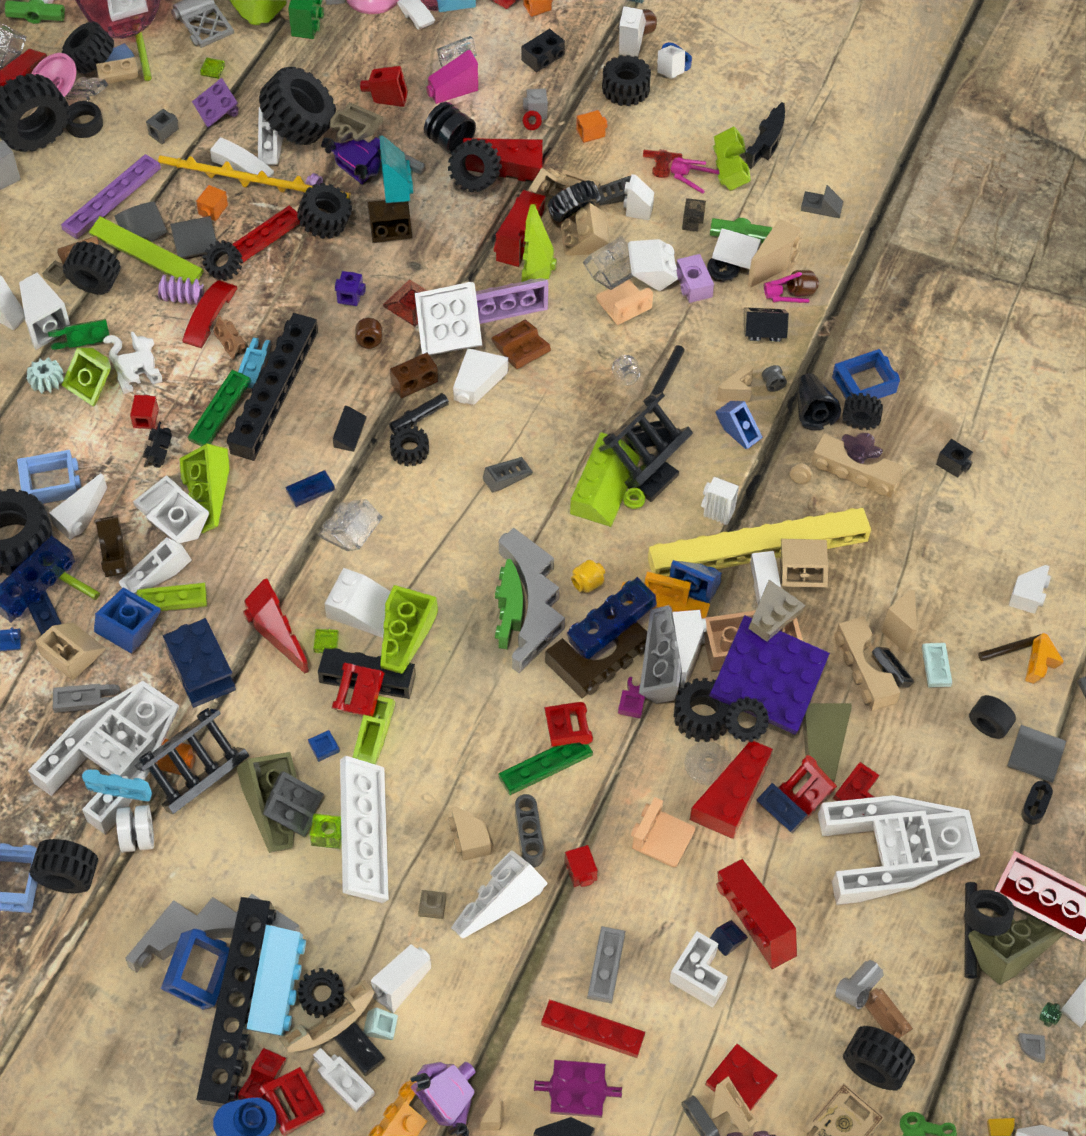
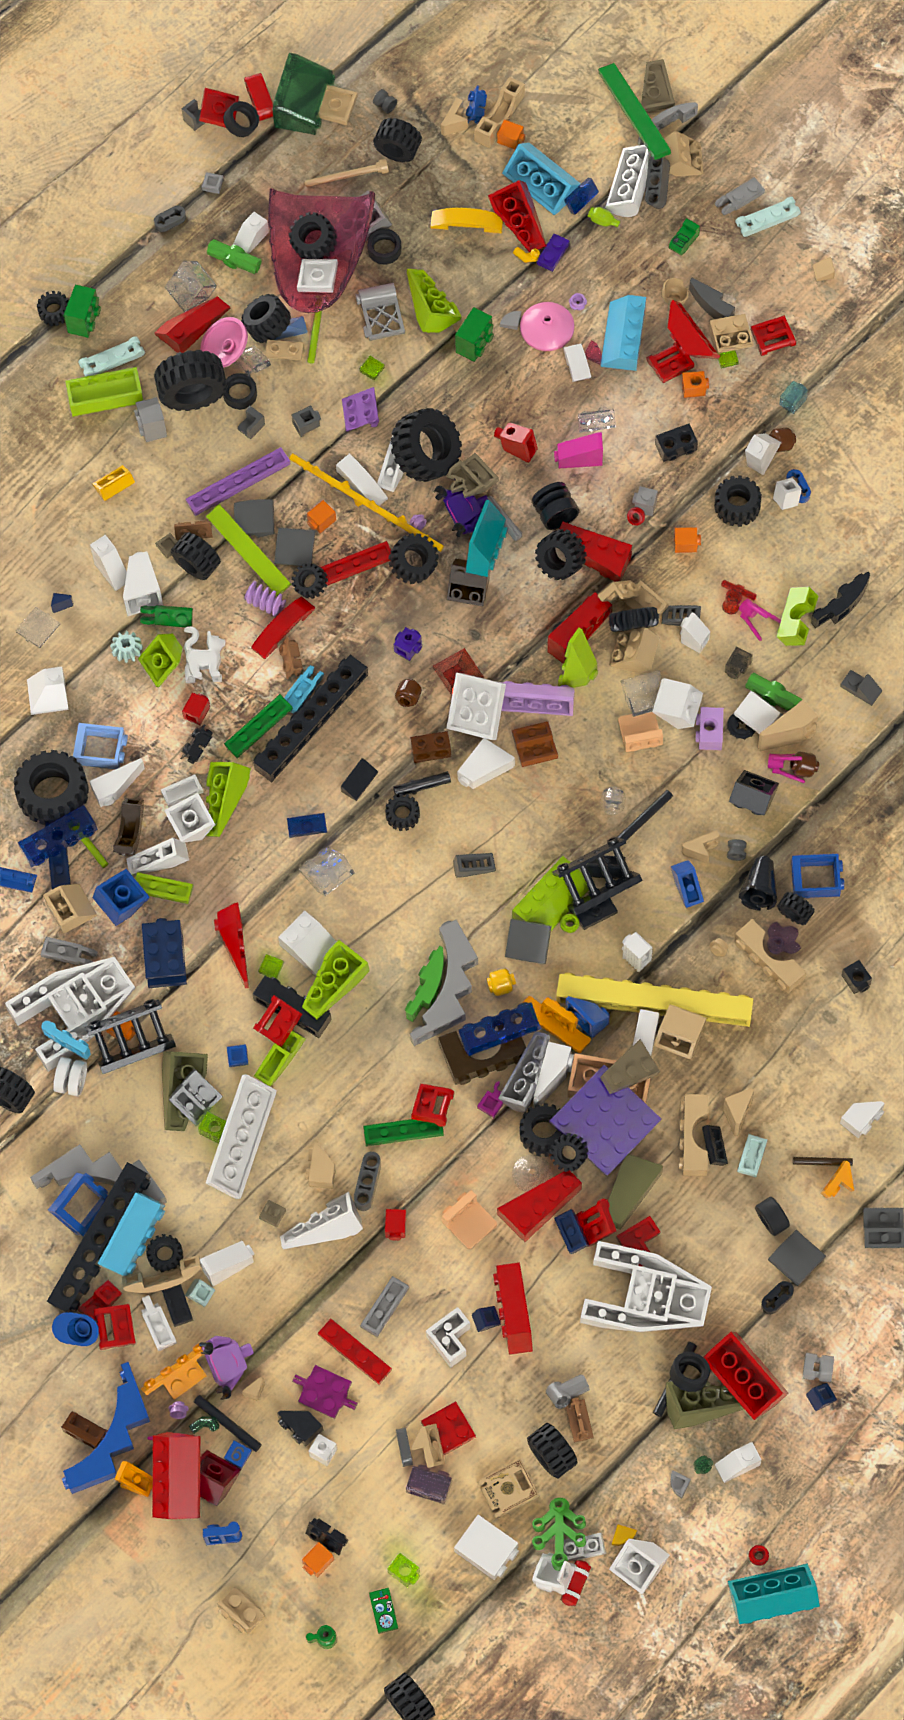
camera: 25 degrees right, 10 degrees up
(108, 142) = (252, 424): none -> dark grey panel
(600, 526) = (528, 941): none -> dark grey slope

